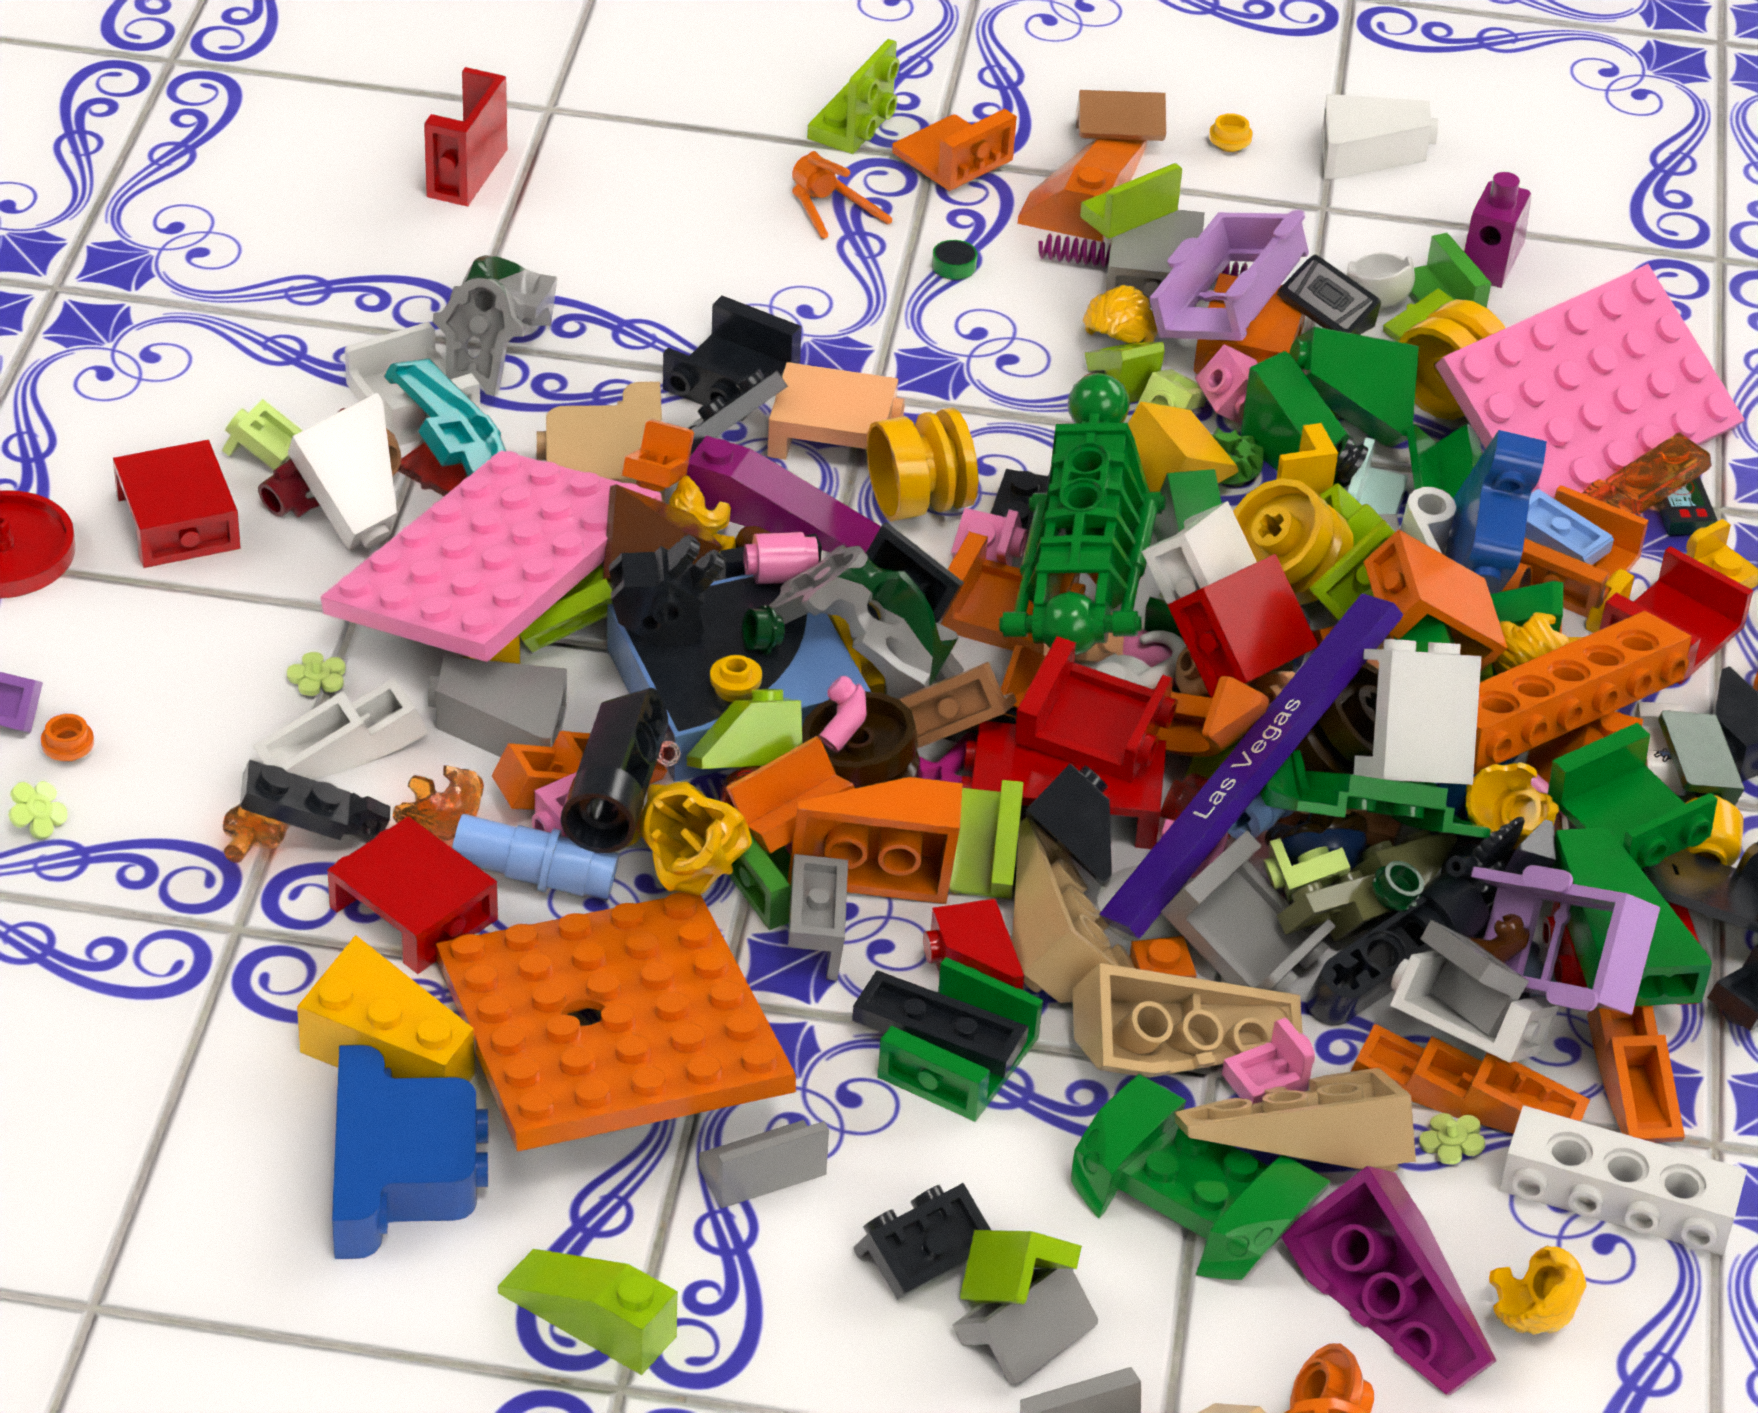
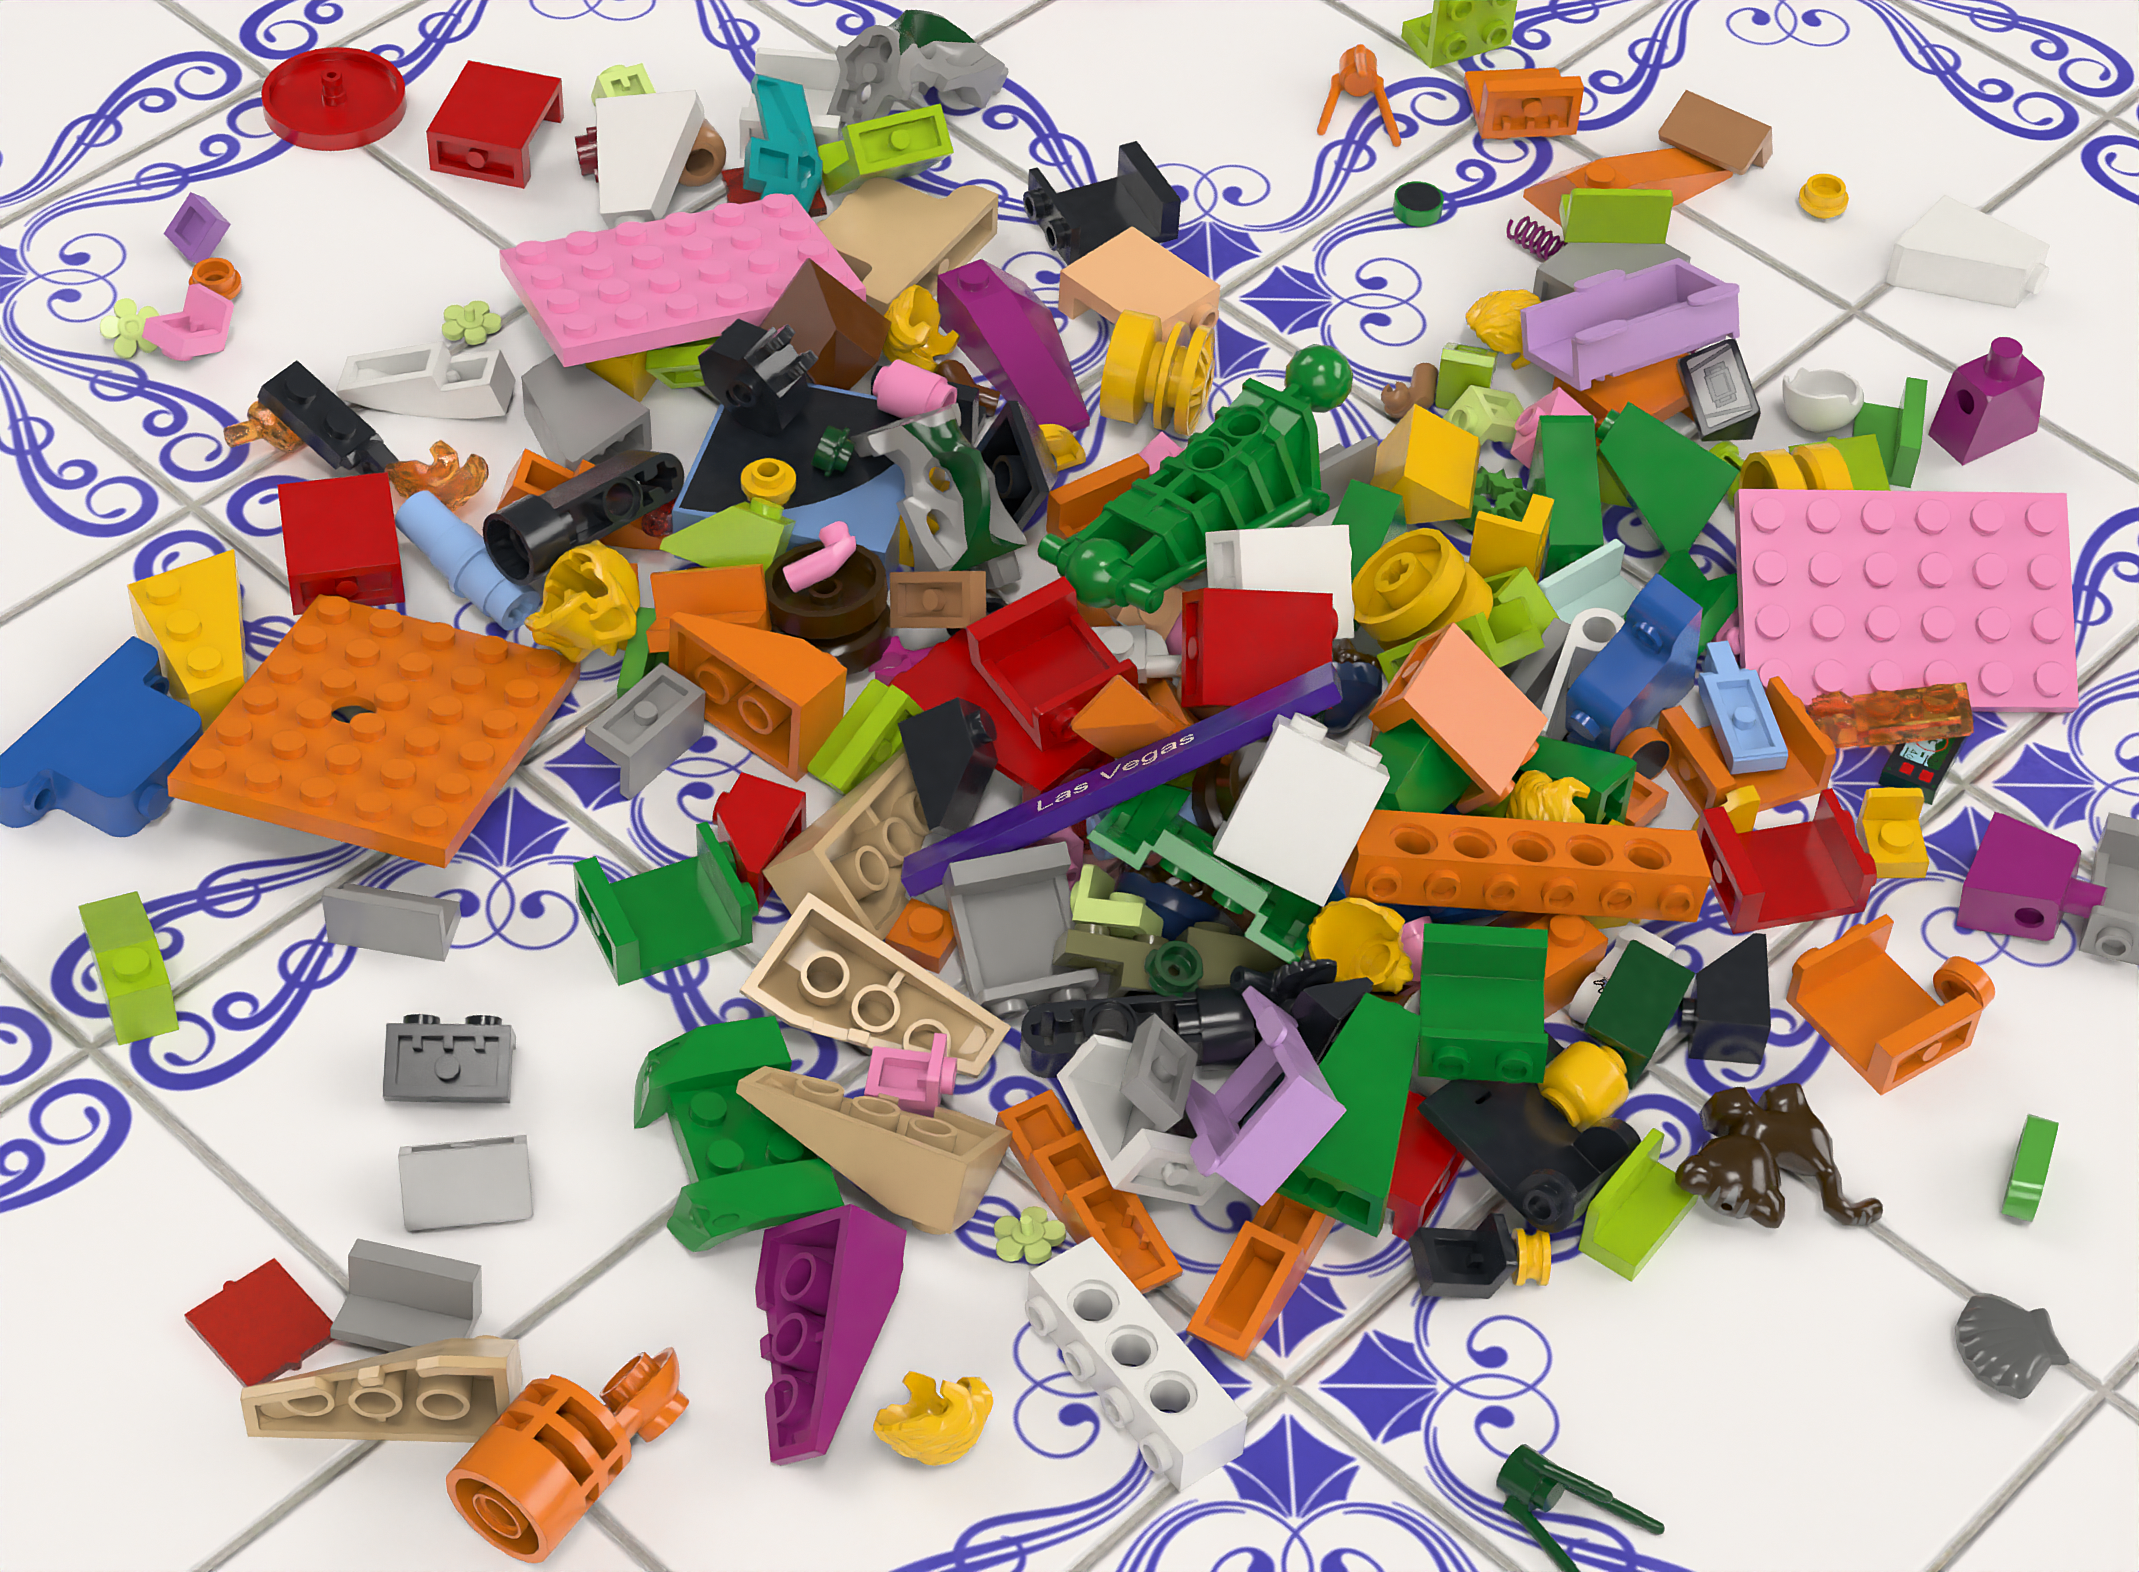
camera: 35 degrees right, 5 degrees up
(95, 778) = (196, 330): none -> bright pink bracket
(540, 390) = (885, 148): none -> lime panel
(662, 456) = (906, 263): orange bracket -> none
(720, 414) = (1024, 247): plate -> none
(942, 1021) = (655, 880): black plate -> none
(1004, 1263) = (491, 1110): lime panel -> none
(1349, 457) = (1569, 547): black bush -> none
(1510, 938) = (1229, 1074): reddish brown arm -> none

